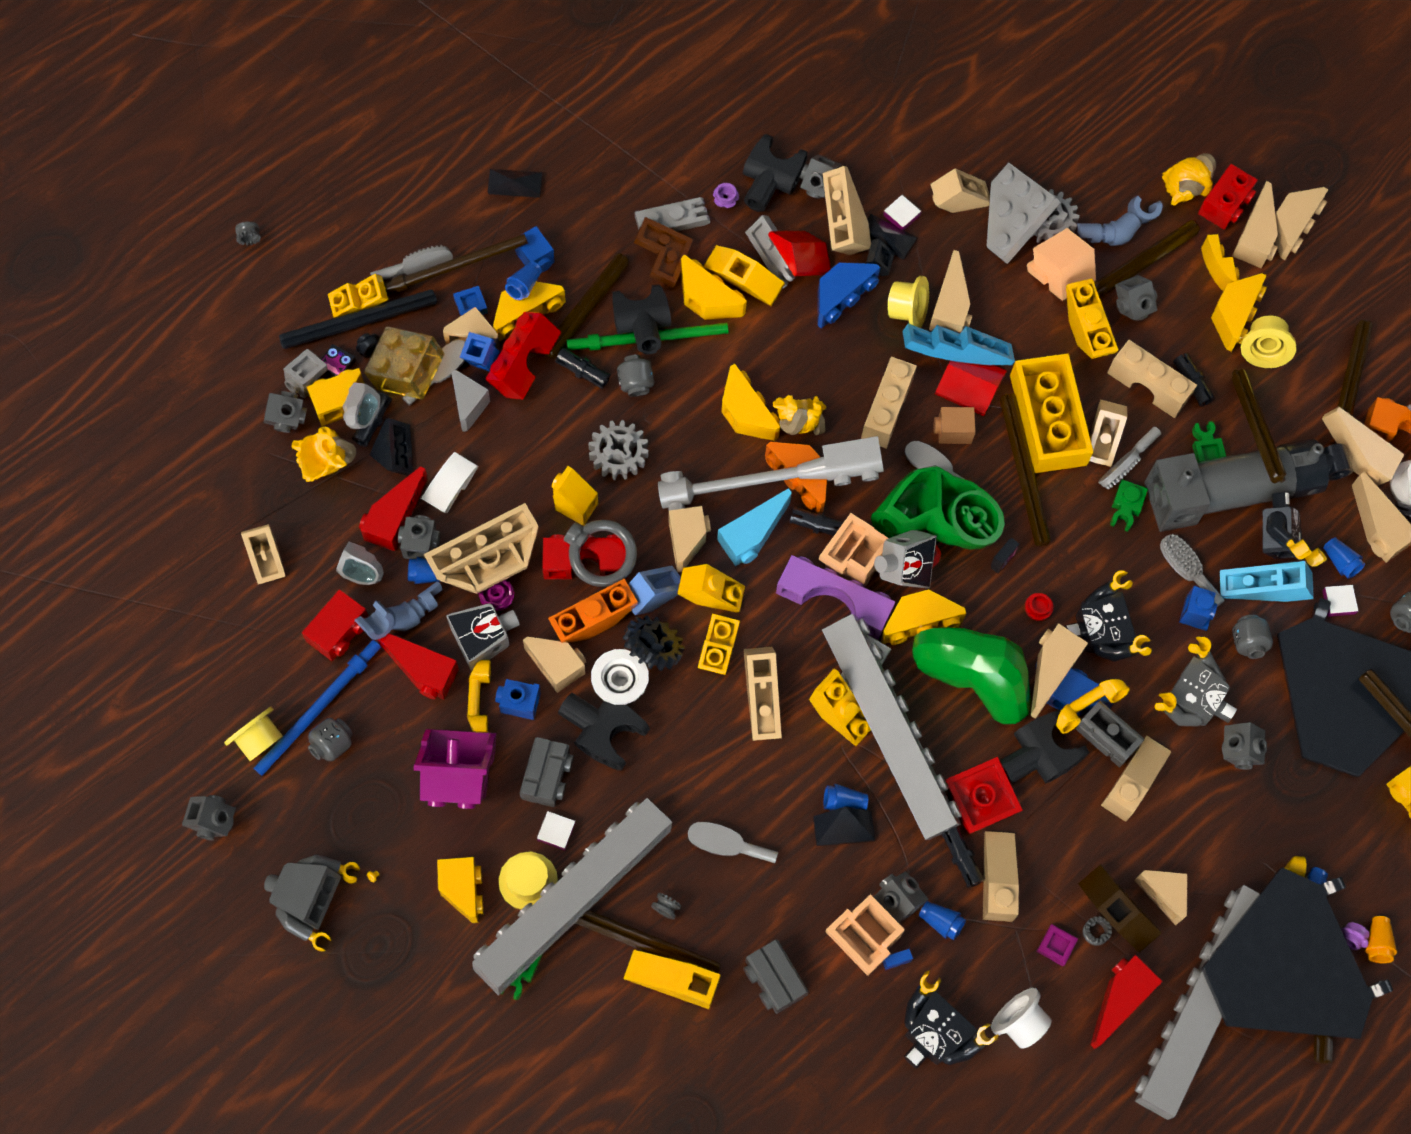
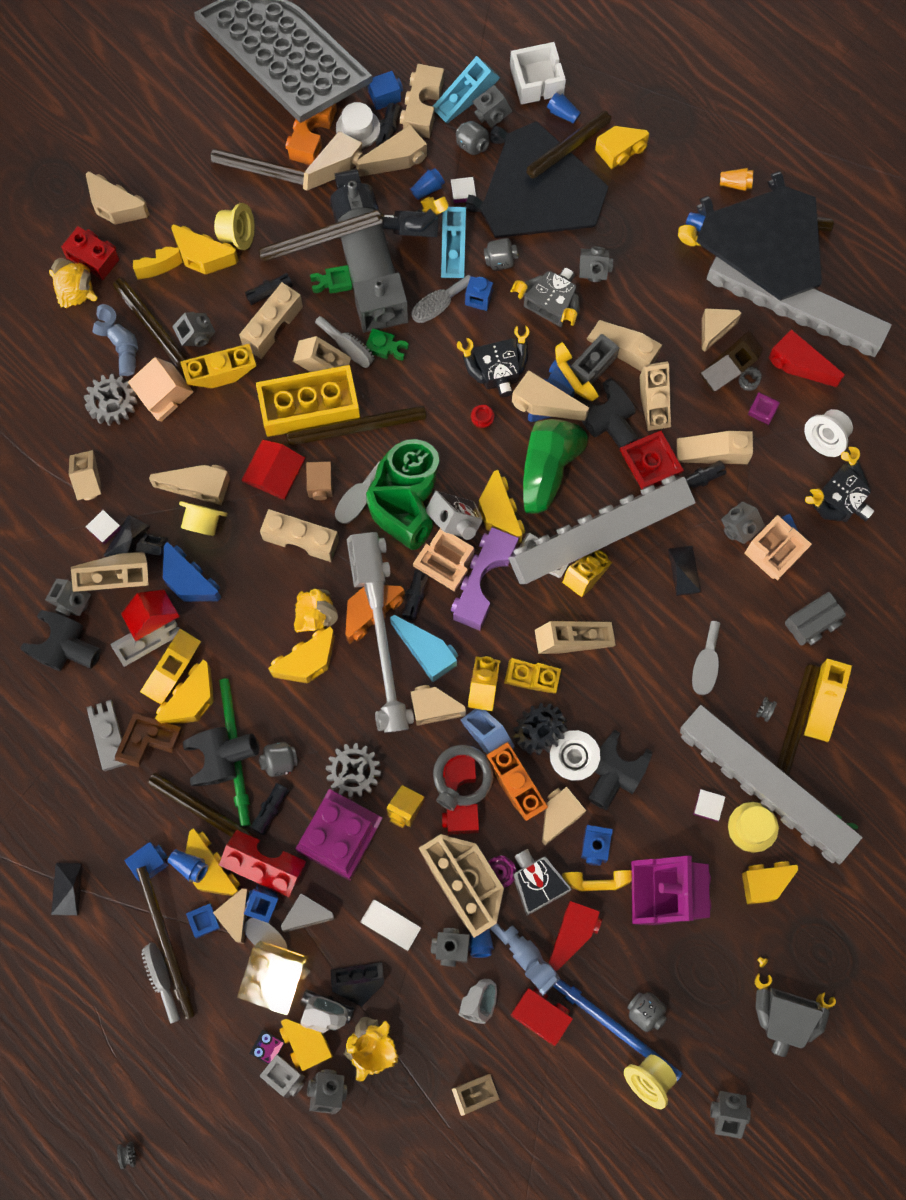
camera: 90 degrees left, 5 degrees up
(357, 297) = (197, 1033): yellow slope -> none
(357, 319) = (220, 1032): black axle -> none
(366, 344) = (249, 1017): black plate -> none
(390, 512) = (427, 976): red slope -> none
(545, 772) = (661, 816): dark grey brick -> none
(546, 427) = (339, 834): none -> magenta piece
(725, 189) = (80, 681): medium lavender plate -> none
(840, 796) = (662, 570): blue cone -> none
(943, 920) = (756, 490): blue cone -> none
(964, 347) = (243, 481): dark azure slope -> none
(1004, 555) = (439, 441): black tile -> none
(1015, 211) = (106, 426): light grey plate -> none
(1066, 805) = (656, 395): none -> tan slope
(1260, 231) = (123, 229): tan slope -> none
(1355, 935) = (736, 195): medium lavender plate -> none

